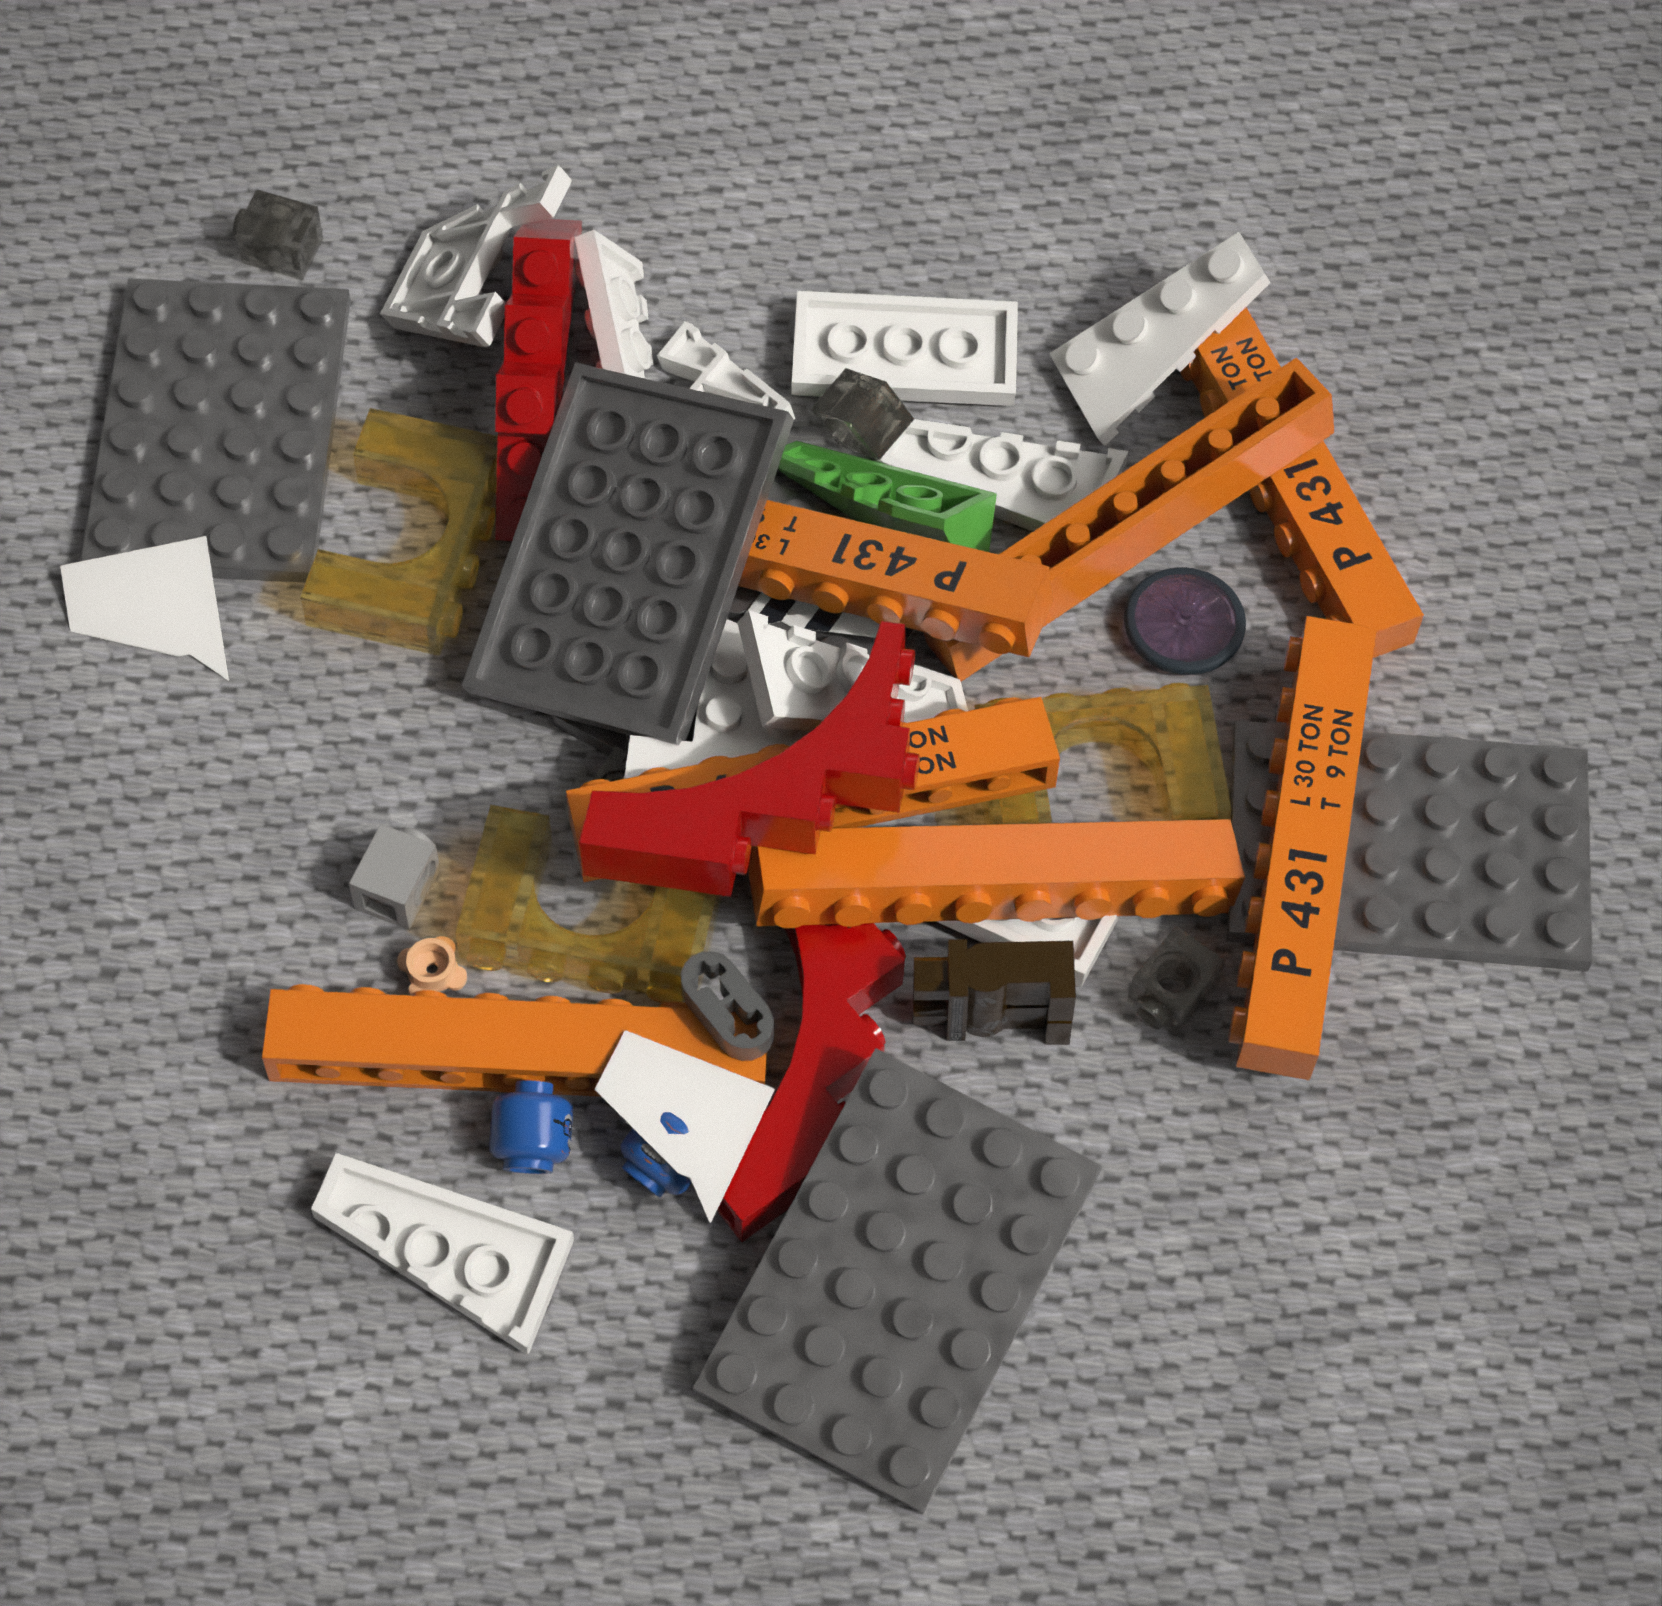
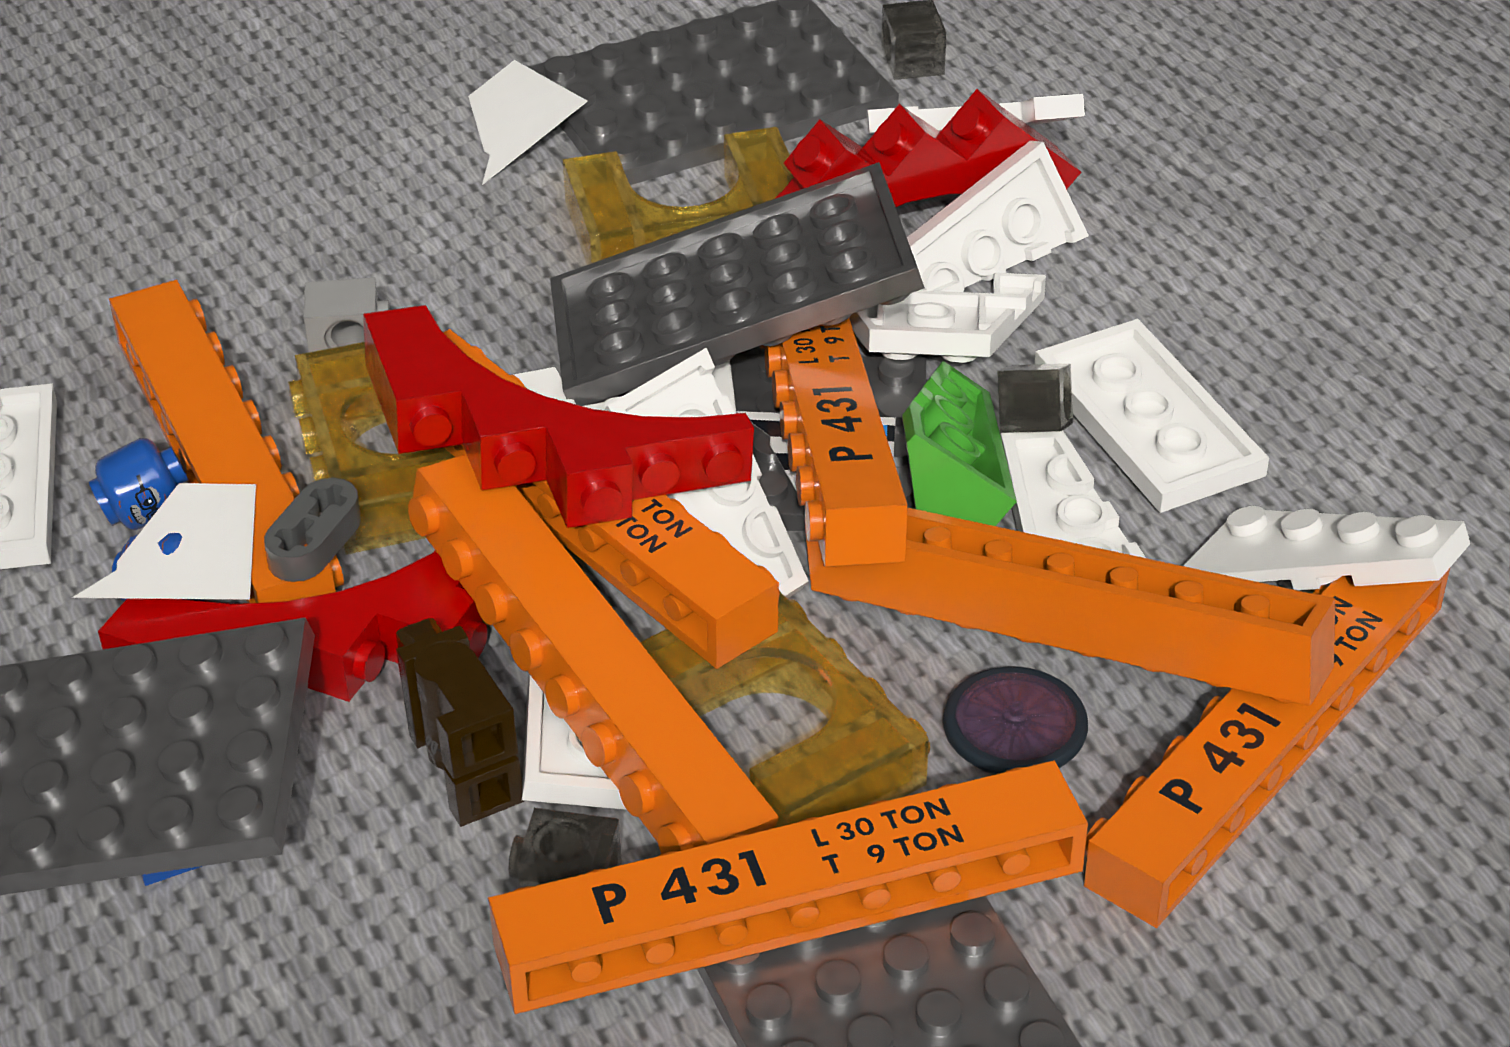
camera: 65 degrees right, 20 degrees down
(436, 952) = (269, 377): light nougat plate -> none

